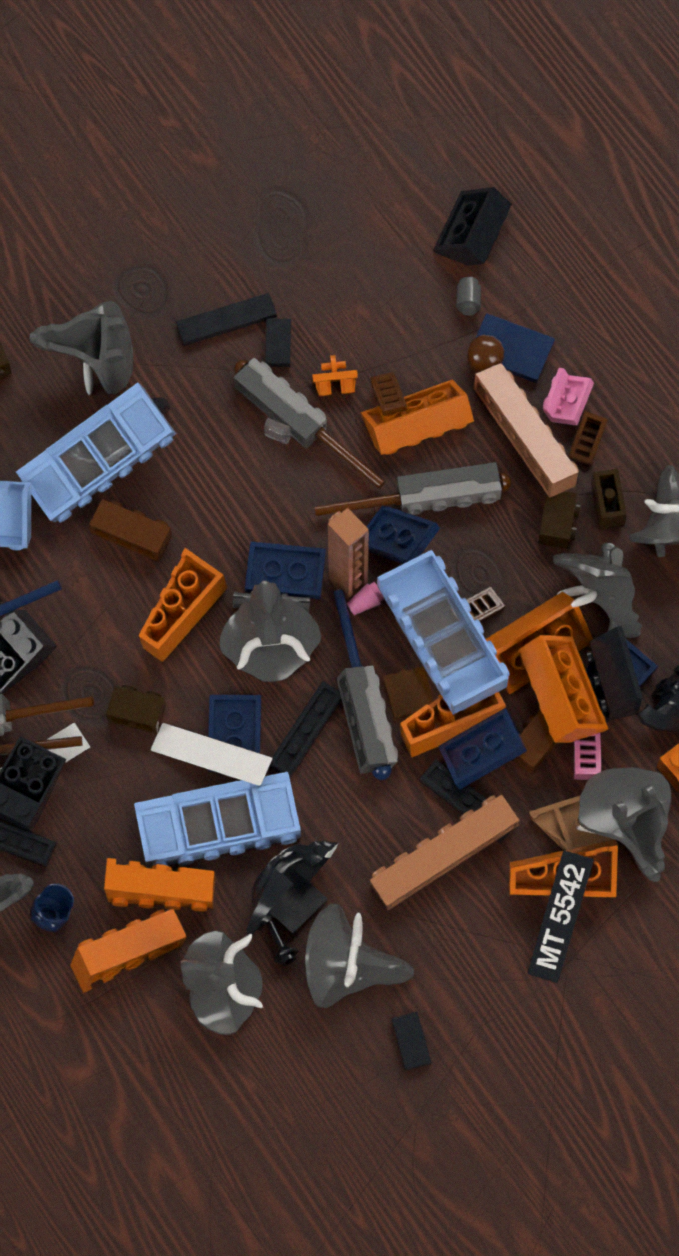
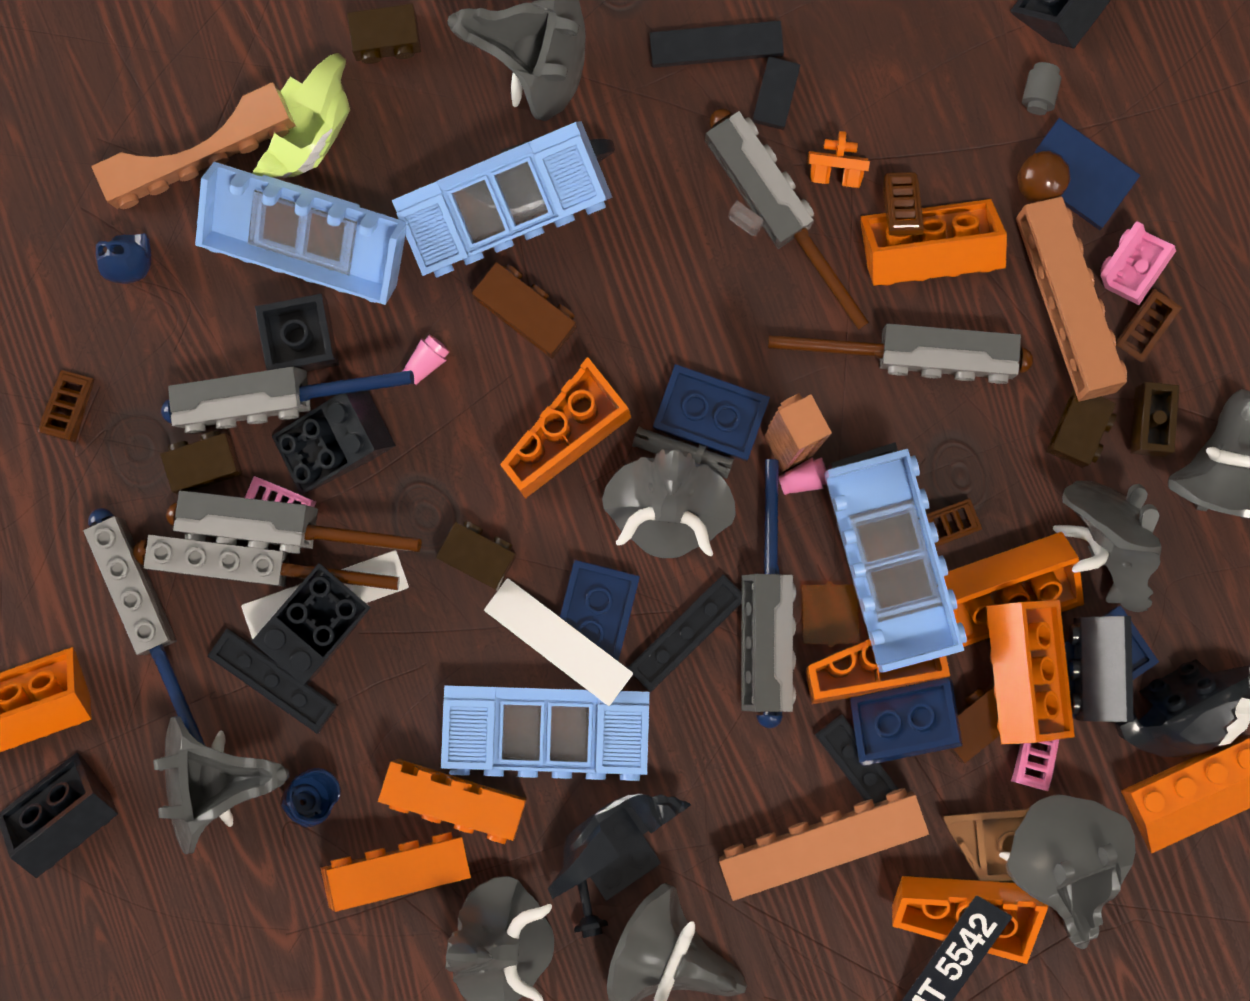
camera: 15 degrees right, 15 degrees up
(68, 577) = (426, 358): none -> bright pink cone
(399, 534) = (867, 405): dark blue tile -> none

